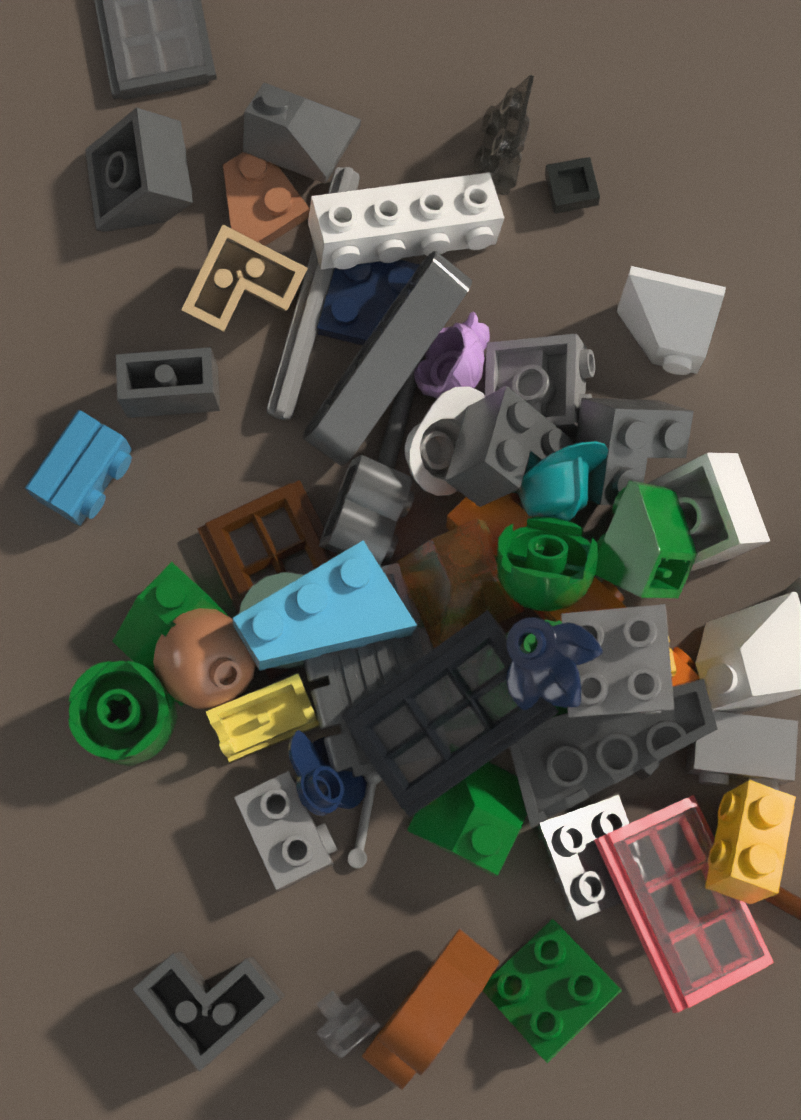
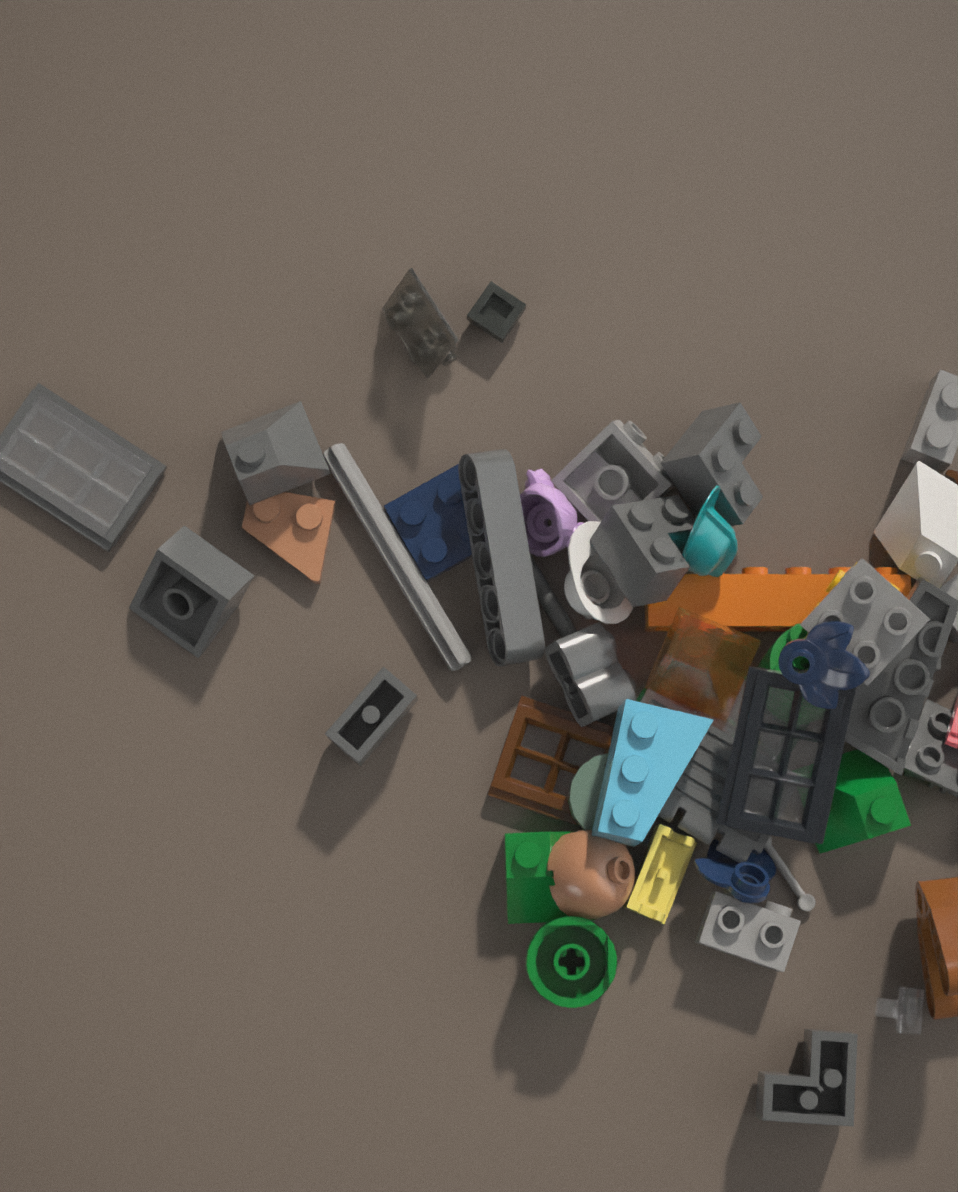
camera: 50 degrees left, 5 degrees up
(80, 469) = (370, 833): dark azure brick -> none
(240, 266) = (337, 597): tan brick -> none
(404, 220) = (416, 450): white brick -> none
(546, 563) = (752, 598): green cylinder -> none
(647, 543) = (798, 521): green slope -> none
(670, 317) = (661, 350): white slope -> none
(717, 507) = (805, 463): white slope -> none

